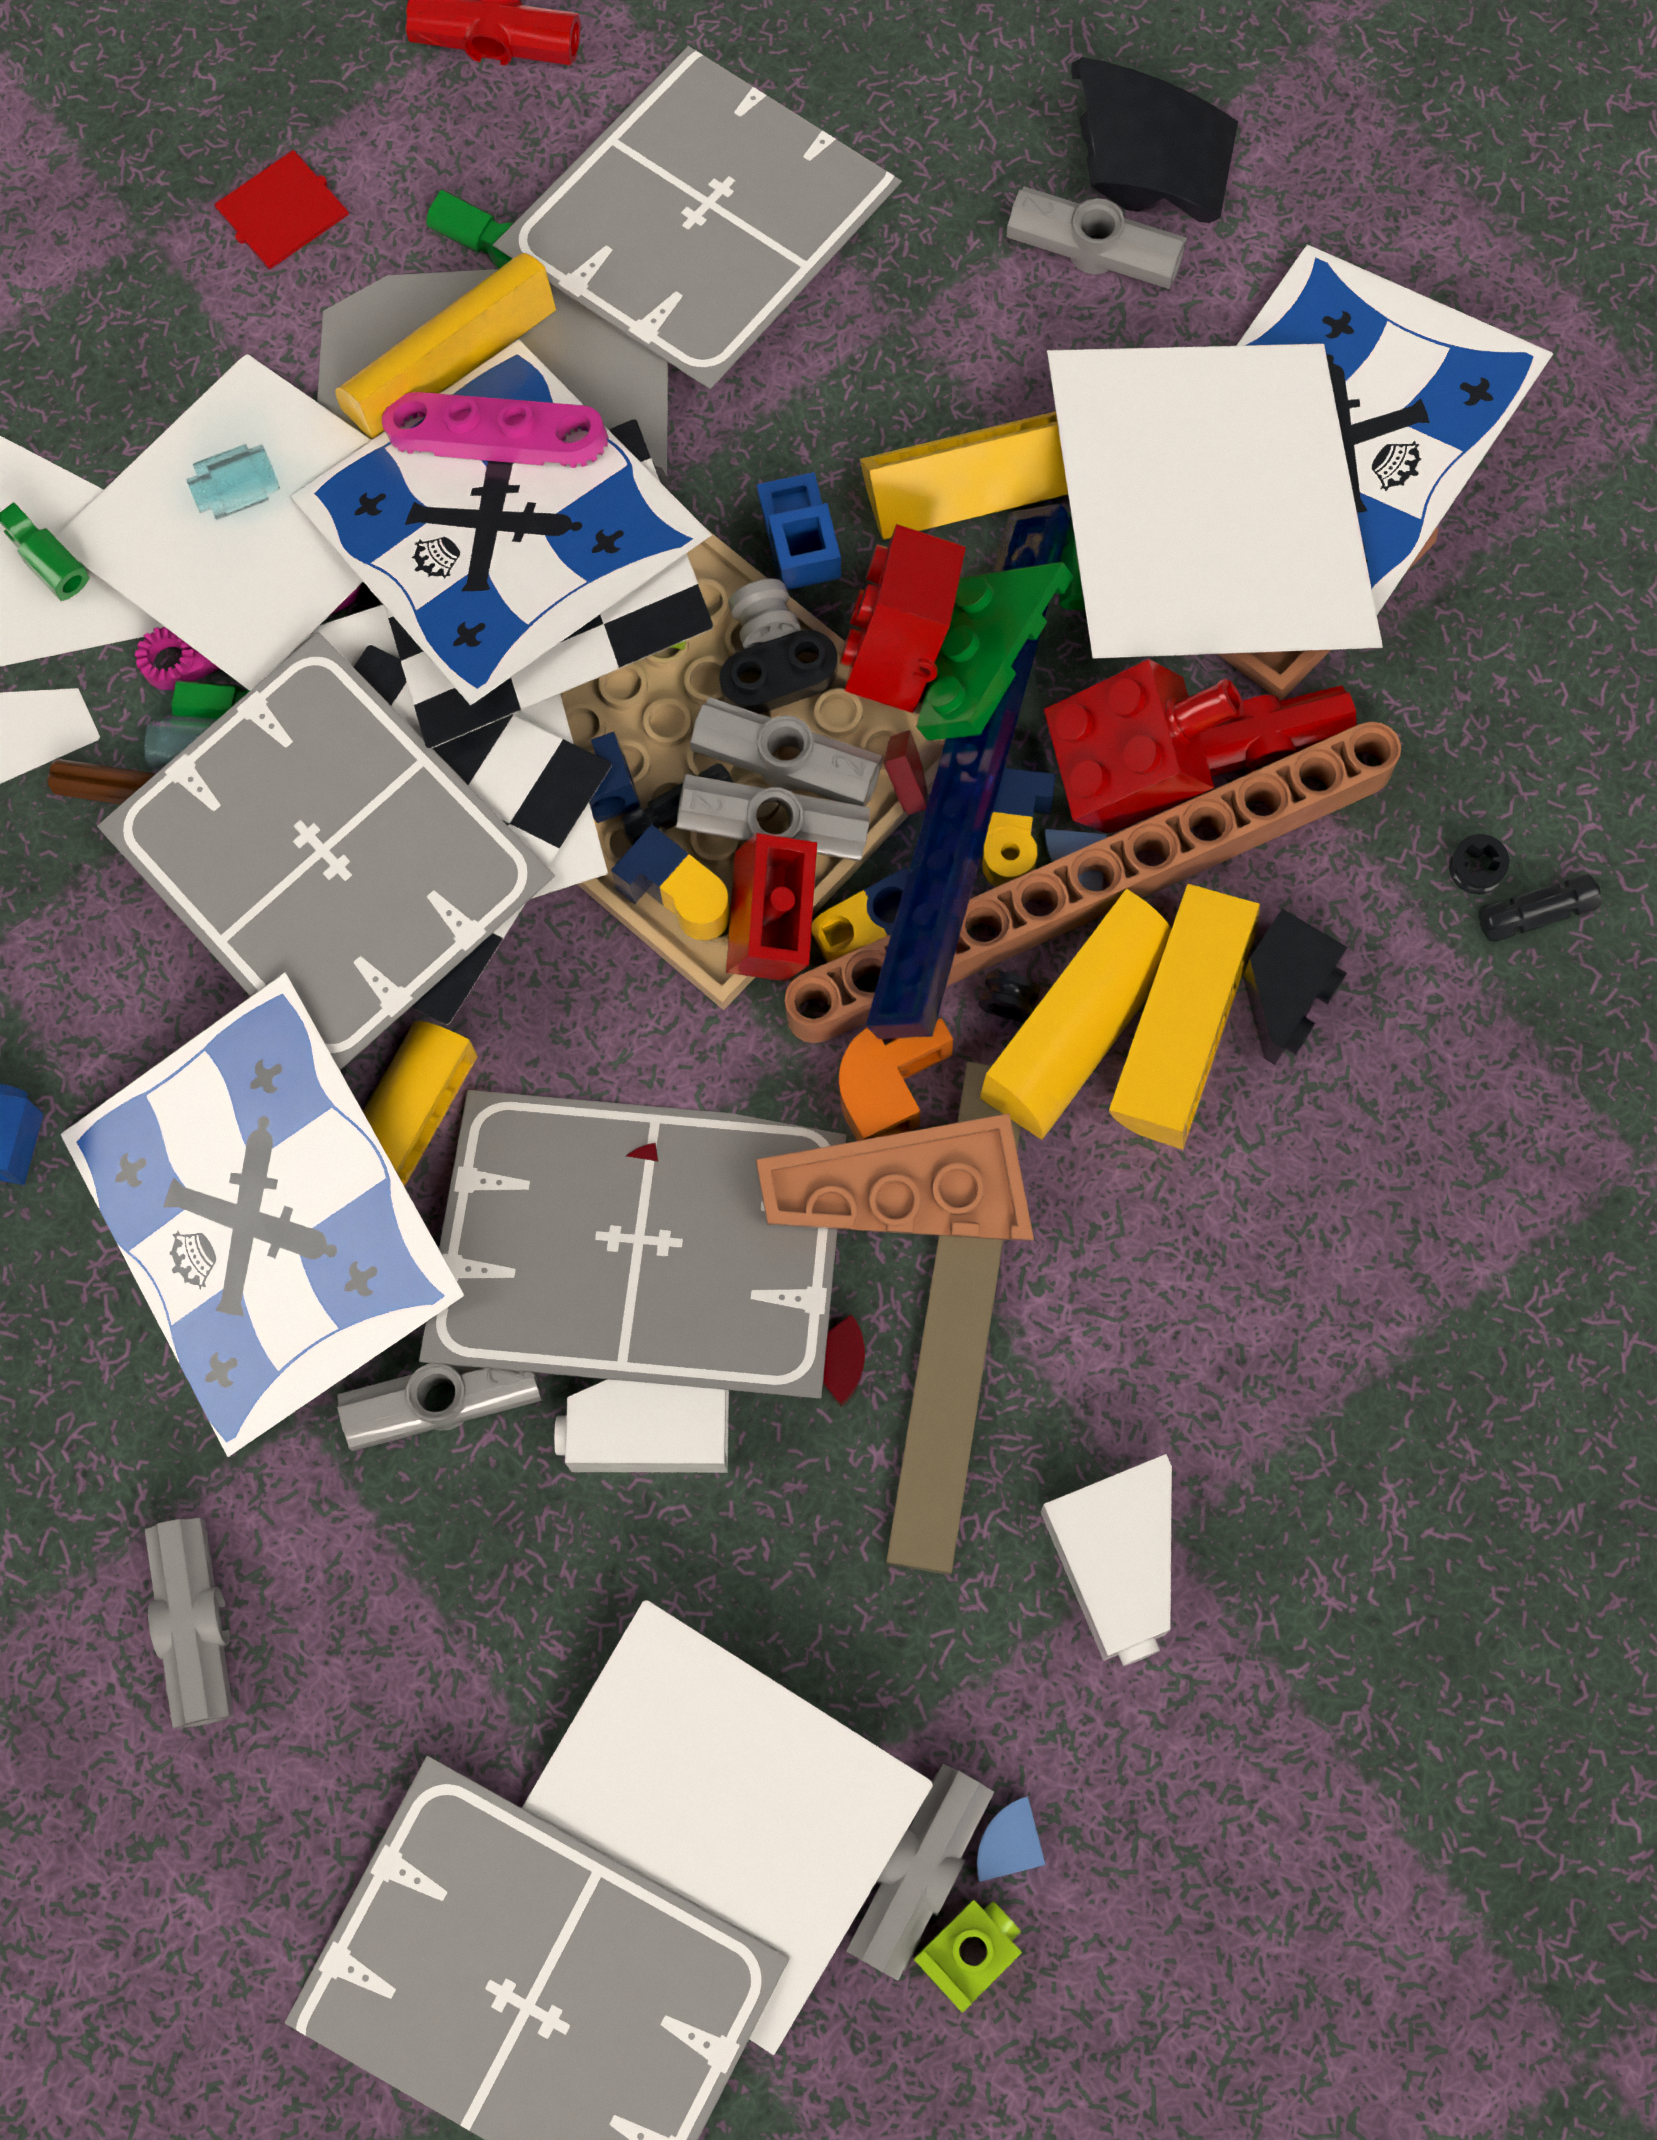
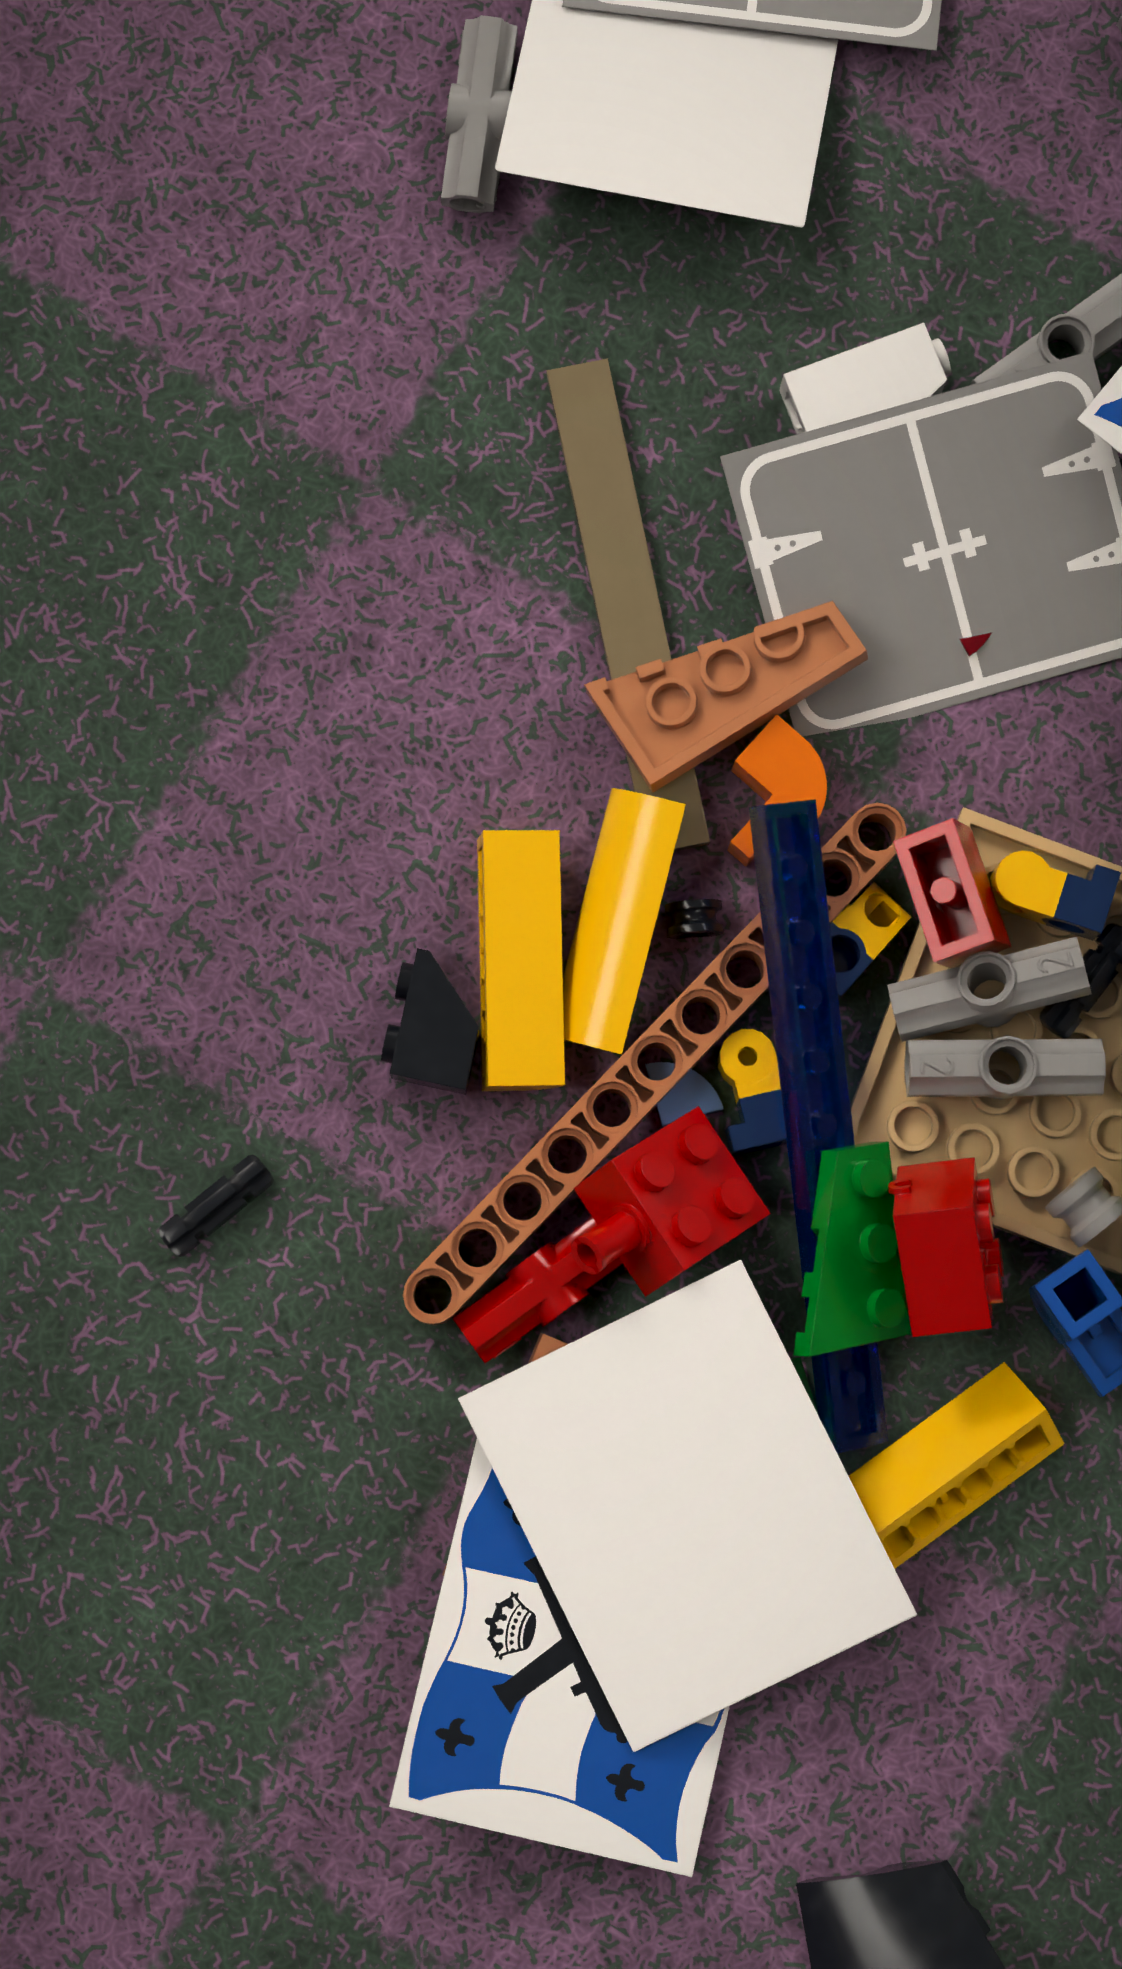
camera: 150 degrees right, 10 degrees up
(782, 675) = (1048, 1159): black plate -> none
(844, 1360) = (716, 523): dark red tile -> none
(906, 772) = (880, 1097): dark red tile -> none
(950, 1973) = (414, 89): lime brick -> none
(1009, 1843) = (411, 170): medium blue tile -> none
(1067, 228) = (961, 1800): light grey piece -> none
(1119, 1556) = (406, 435): white slope -> none
(1475, 846) = (282, 1211): black bush -> none

